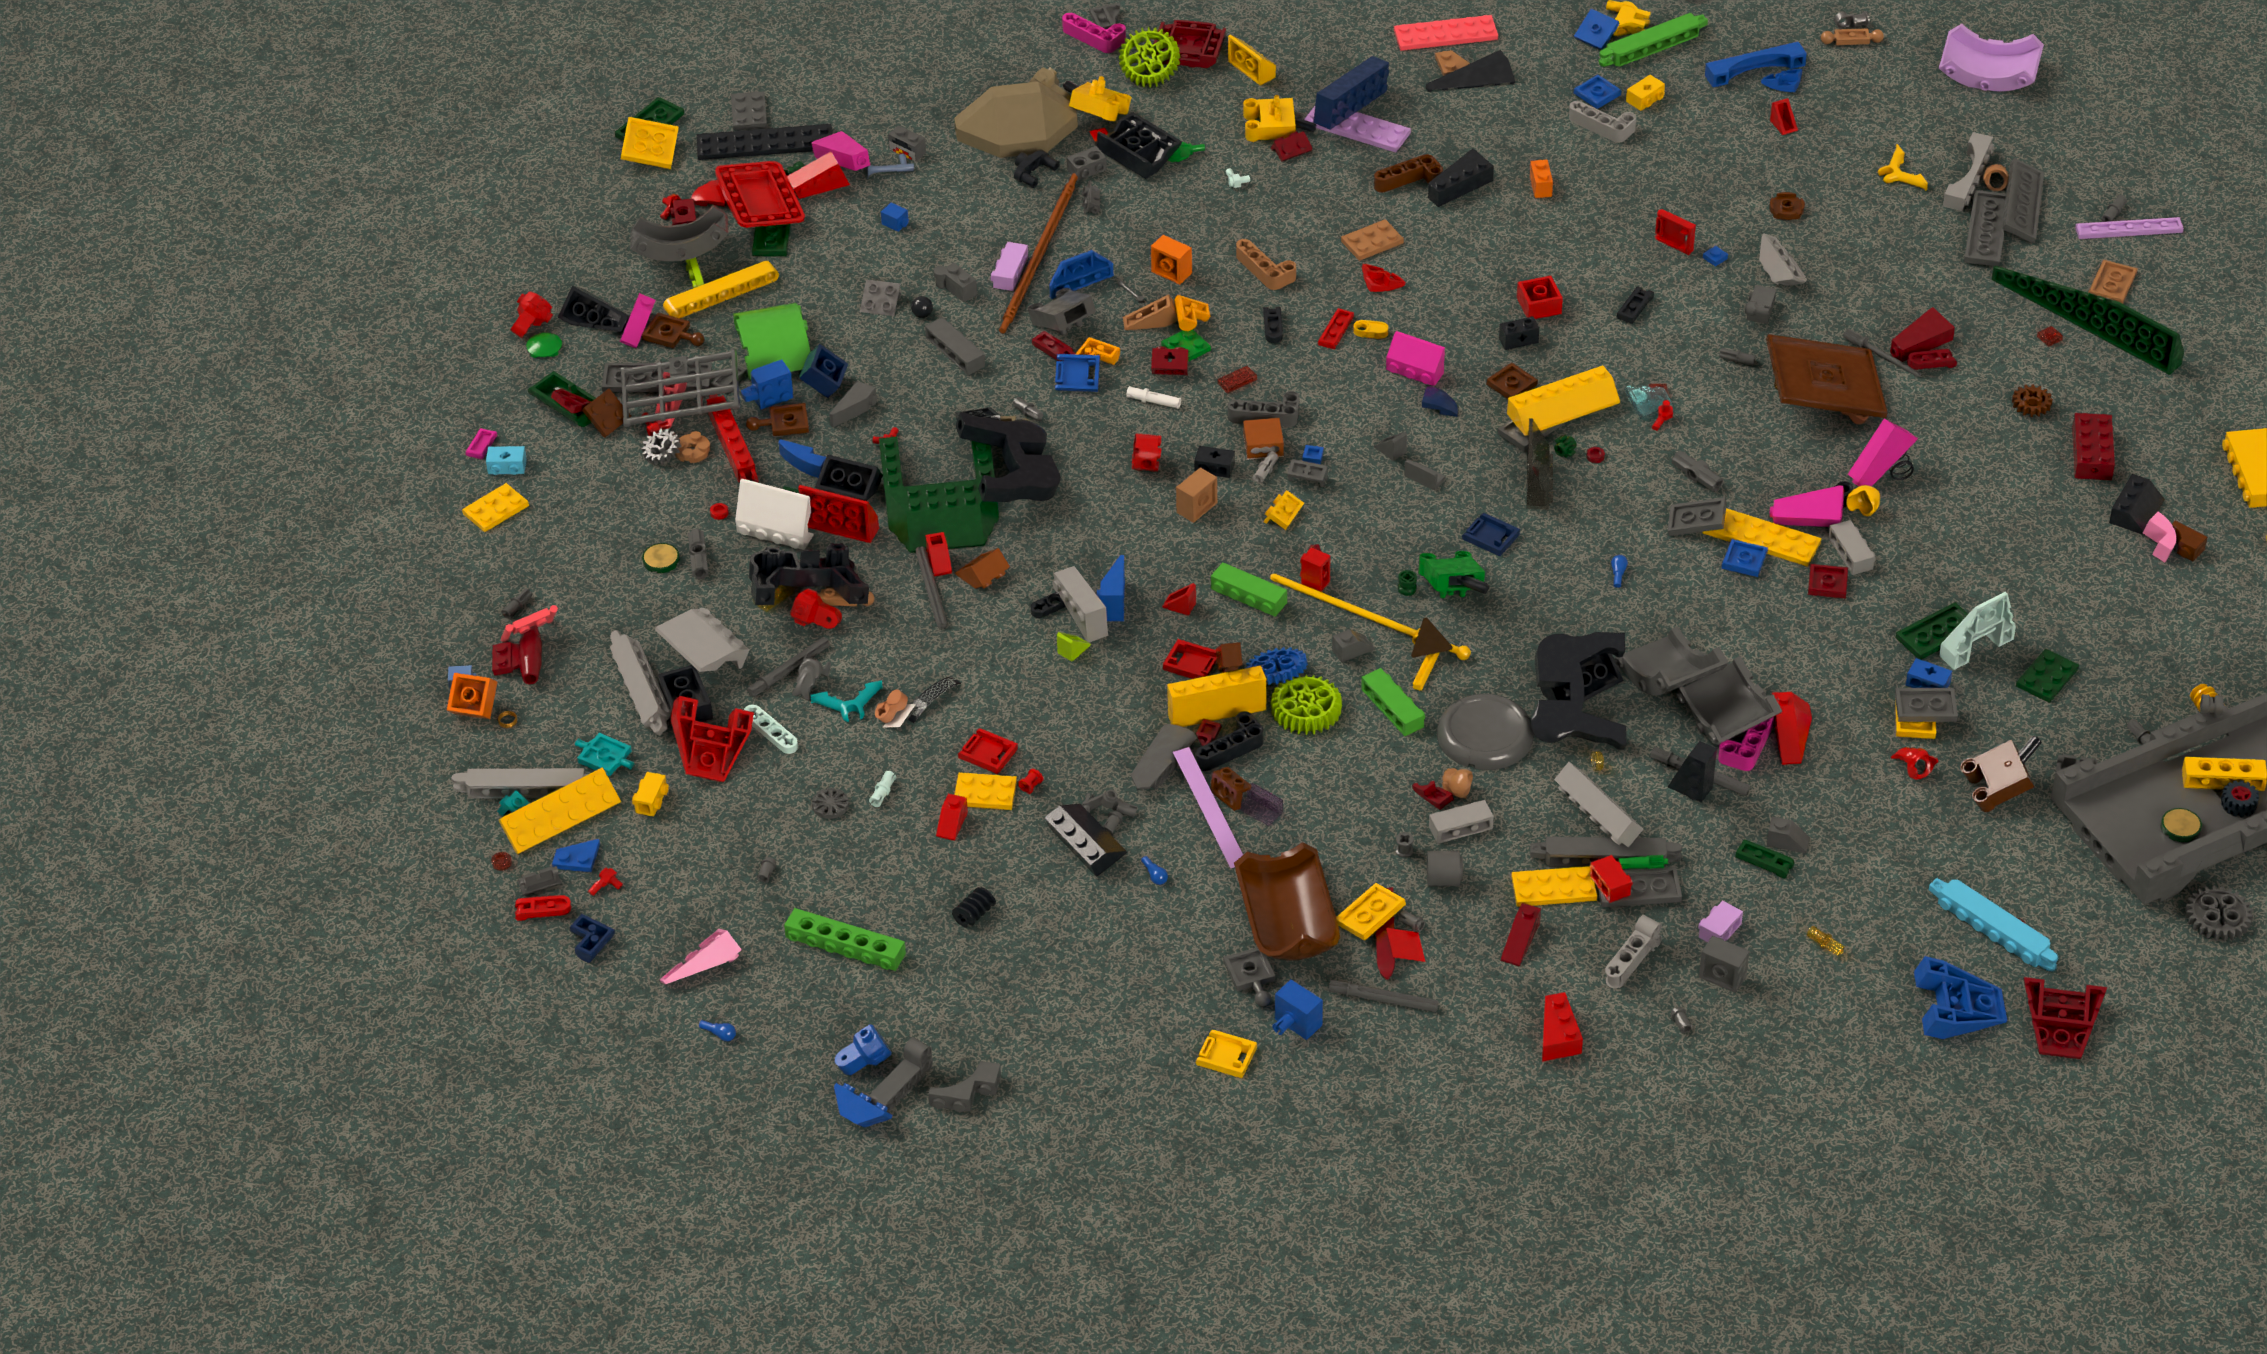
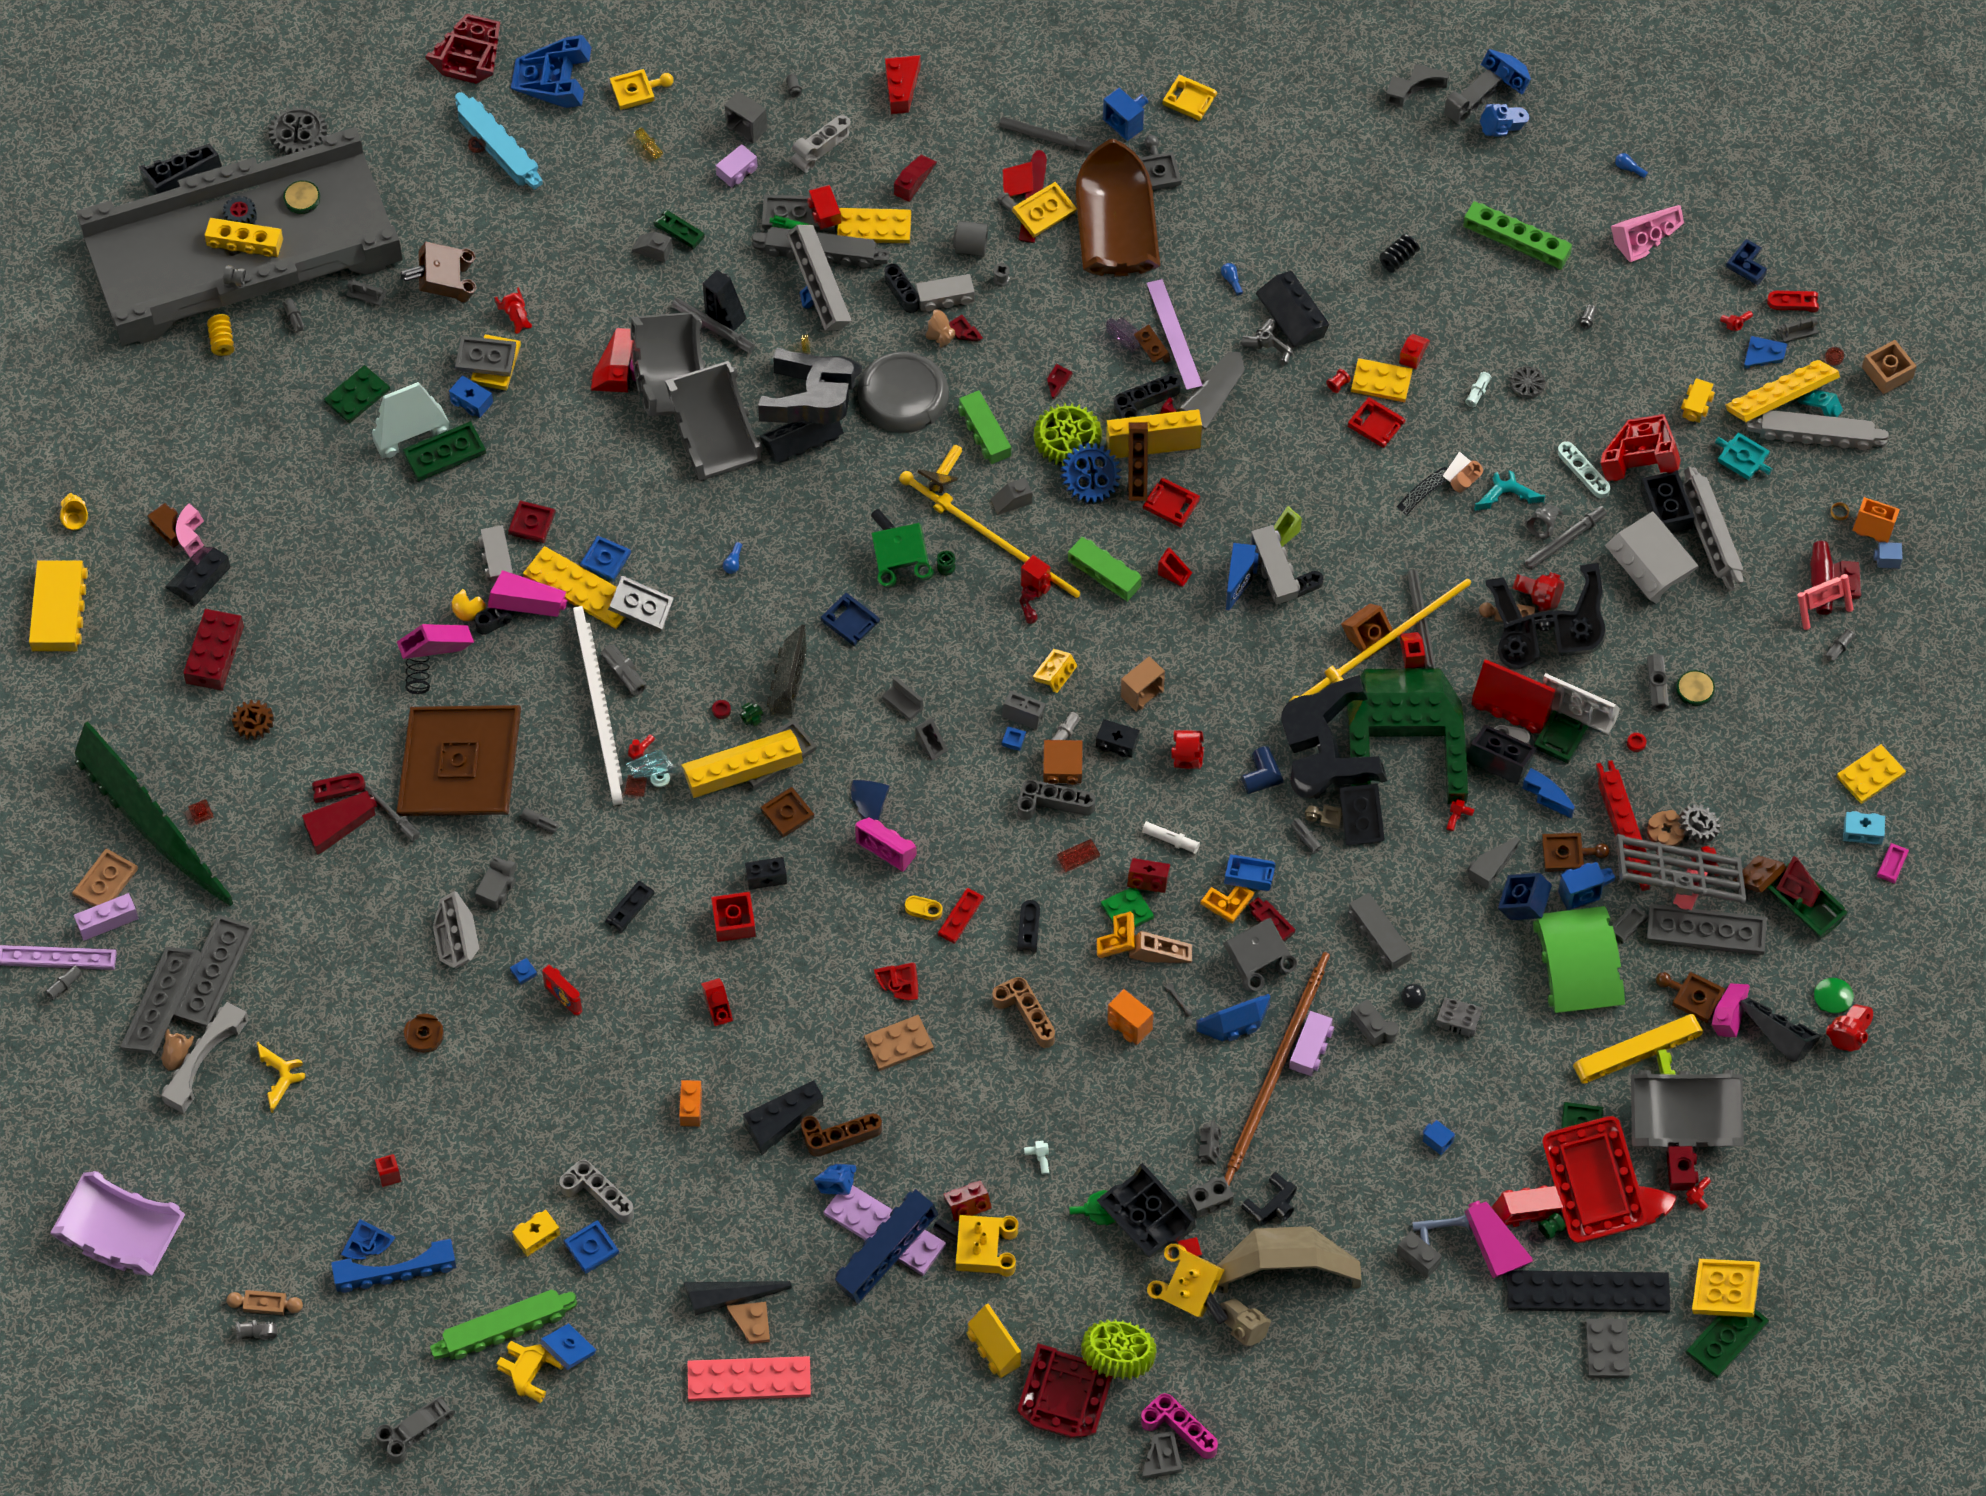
camera: 175 degrees left, 15 degrees up
(444, 843) = (1889, 367): none -> medium nougat brick
(1009, 530) = (1334, 675): none -> yellow bar
(1071, 452) = (1266, 773): none -> dark blue brick
(1326, 758) = (1058, 379): none -> dark red slope
(1404, 141) = (836, 1179): none -> blue piece
(1510, 821) = (898, 281): none -> black beam
(1539, 245) = (717, 1001): none -> red slope
(1713, 443) = (599, 705): none -> white gear
(1858, 1006) = (639, 80): none -> yellow plate
(2098, 249) = (106, 916): none -> lavender brick

